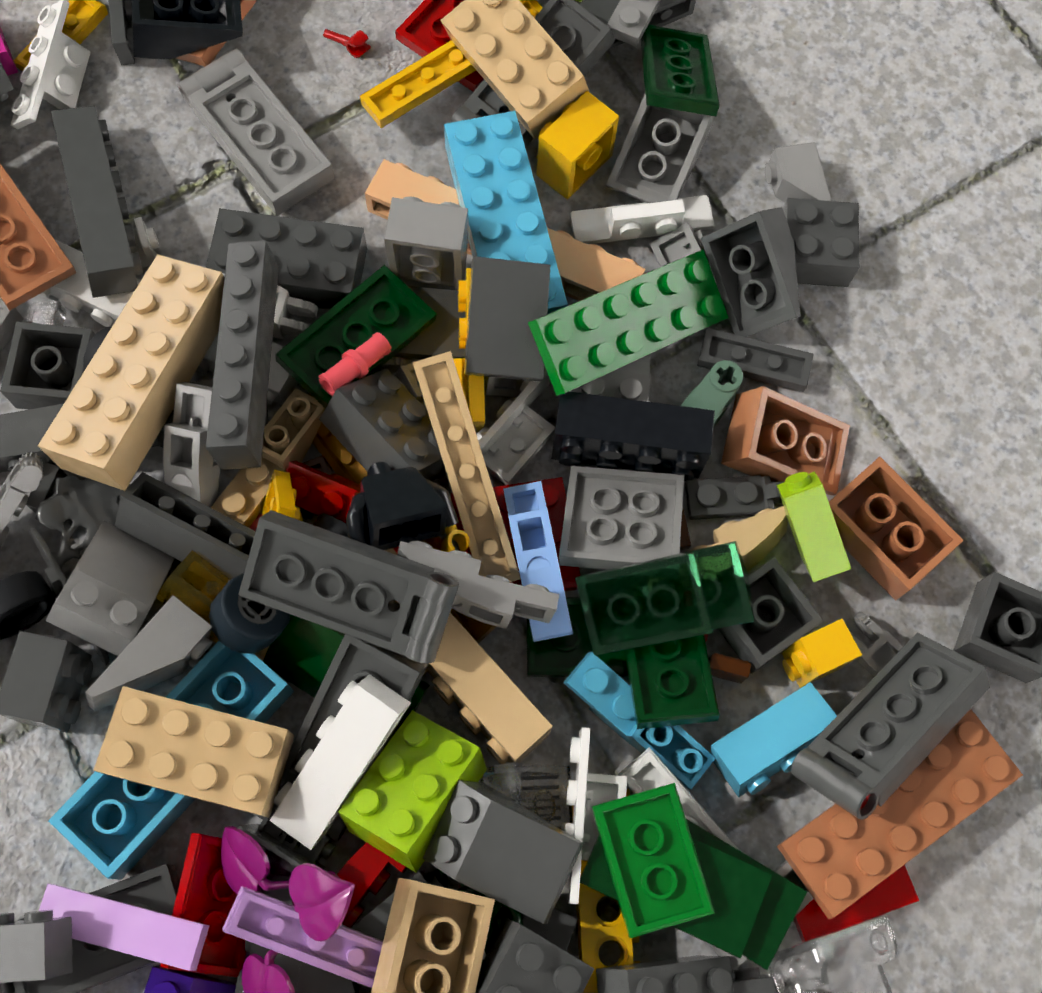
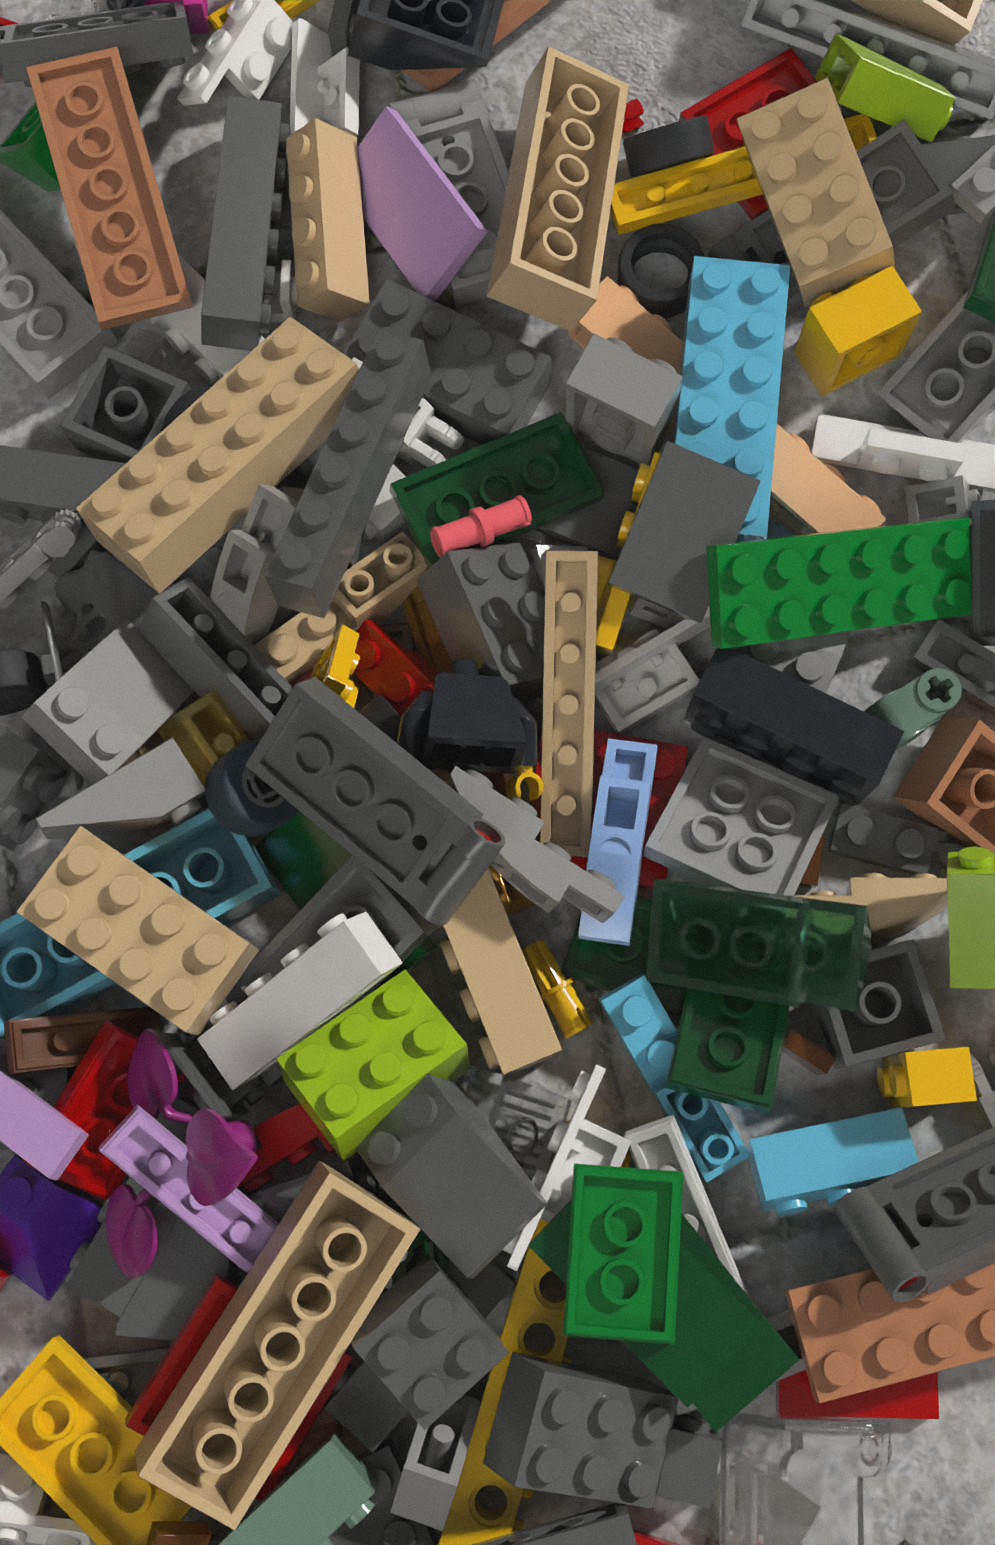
camera: 30 degrees right, 5 degrees up
(125, 99) = (320, 83): none -> white bracket
(159, 180) = (327, 221): none -> tan brick
(162, 860) = (64, 1039): none -> reddish brown tile
(219, 150) = (414, 206): none -> lavender tile
(327, 109) = (559, 191): none -> tan brick
(395, 55) = (668, 146): none -> black tyre
(418, 122) = (658, 239): none -> black tyre
(532, 688) = (556, 989): none -> yellow axle

